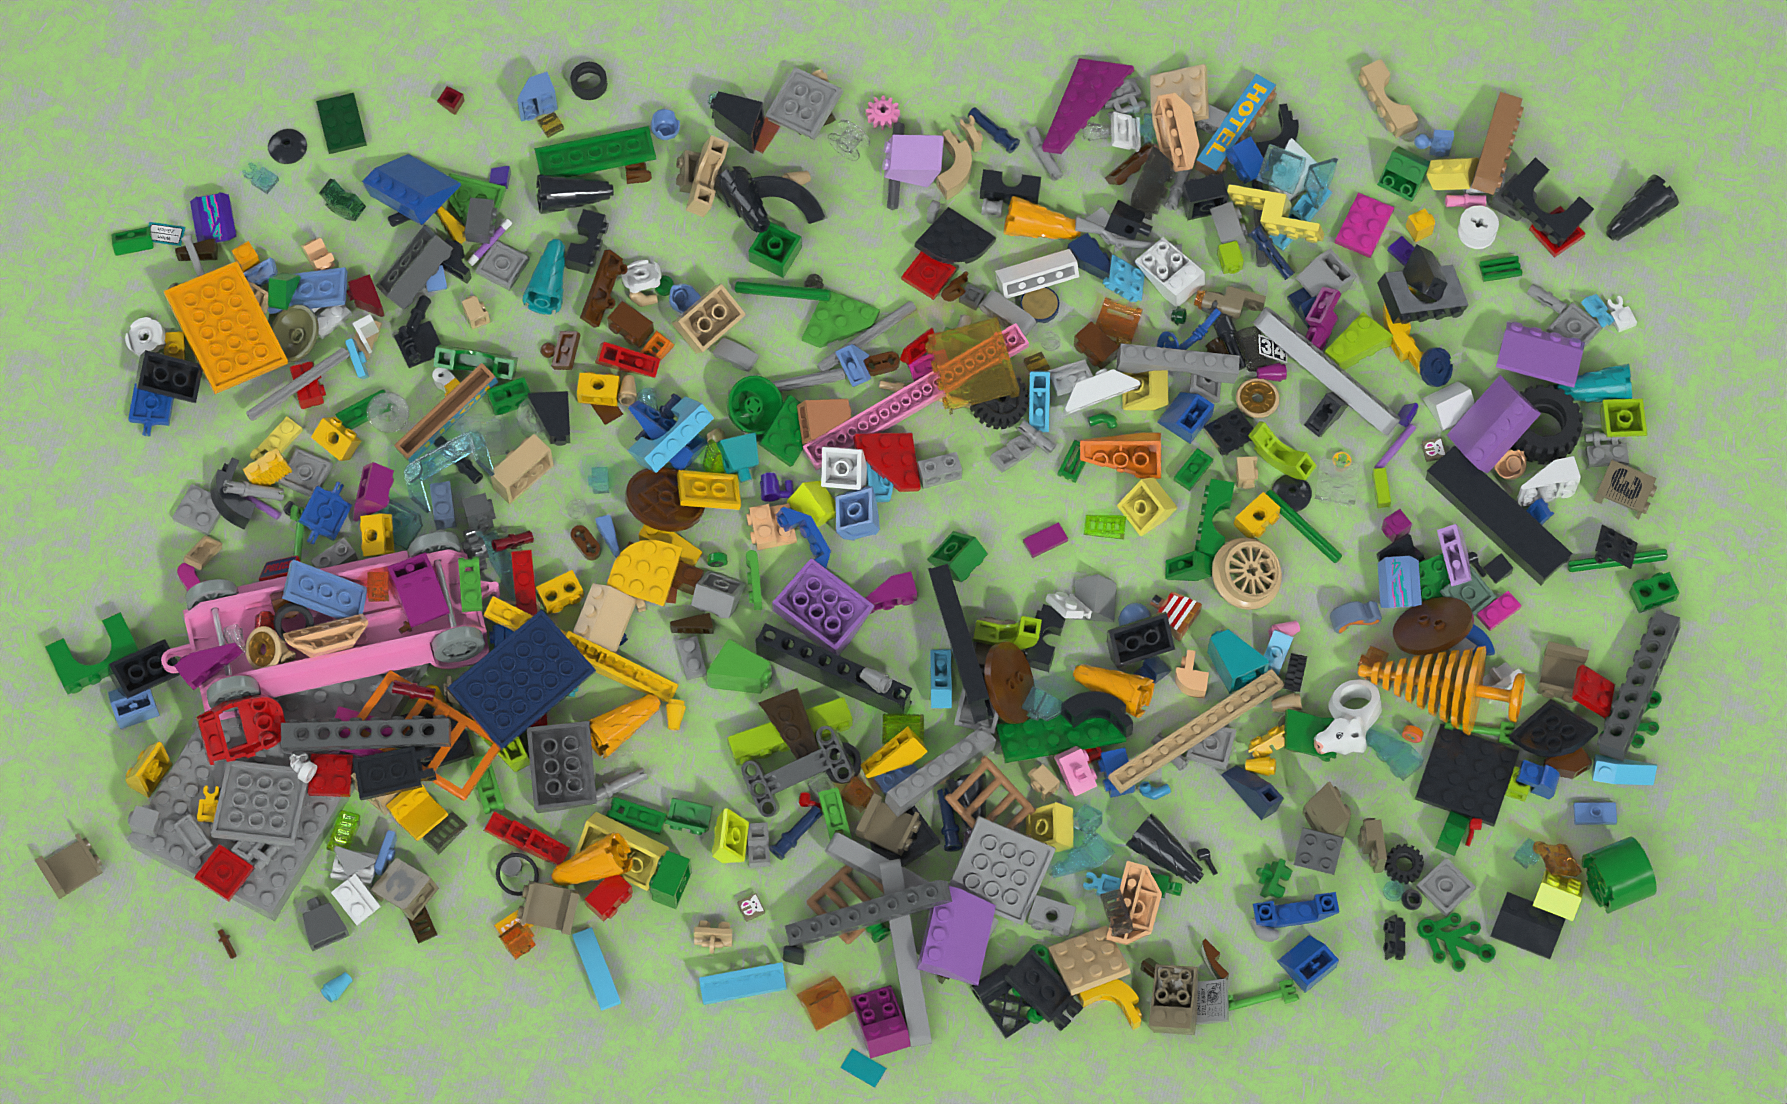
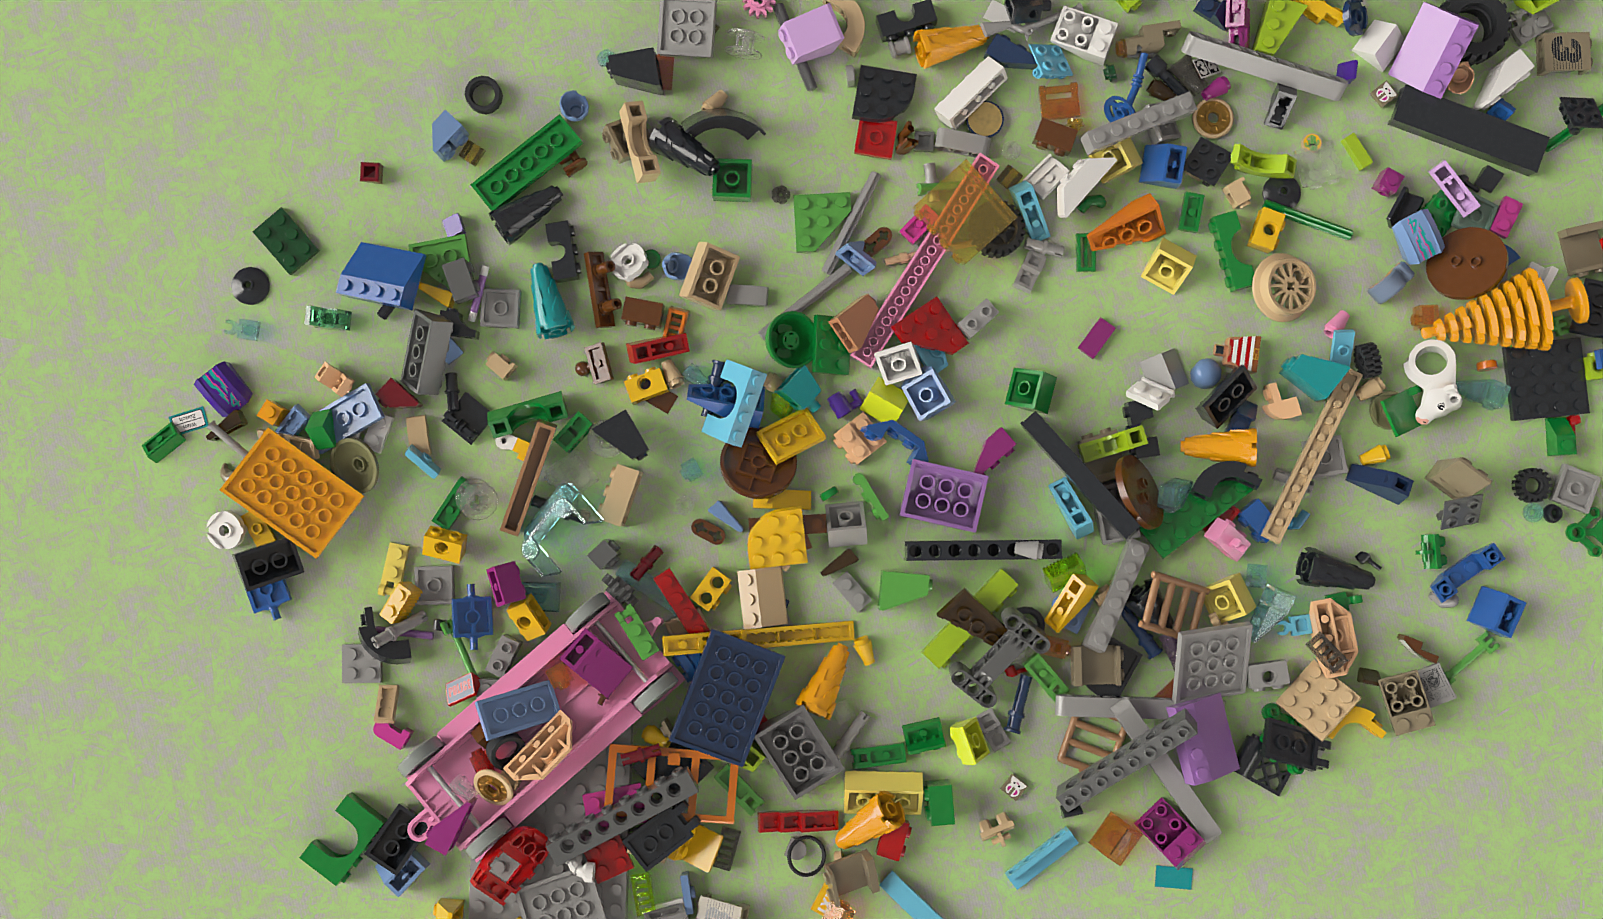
camera: 25 degrees left, 20 degrees up
(297, 384) = (384, 513): light grey axle -> none
(312, 393) = (392, 505): red brick -> none
(365, 328) = (414, 441): white panel -> none
(443, 505) = (569, 559): sand blue brick -> none
(782, 291) = (758, 216): green axle -> none
(916, 348) = (904, 214): red slope -> none
(1043, 781) = (1202, 559): tan brick -> none
(1112, 519) = (1157, 296): clear neon green slope -> none
(1189, 567) = (1230, 305): green slope -> none
(1261, 745) = (1368, 435): yellow hinge -> none
(1372, 841) = (1507, 482): dark tan plate -> none
(1394, 929) = (1549, 549): black hinge -> none
(1395, 447) = (1350, 108): medium lavender bar -> none

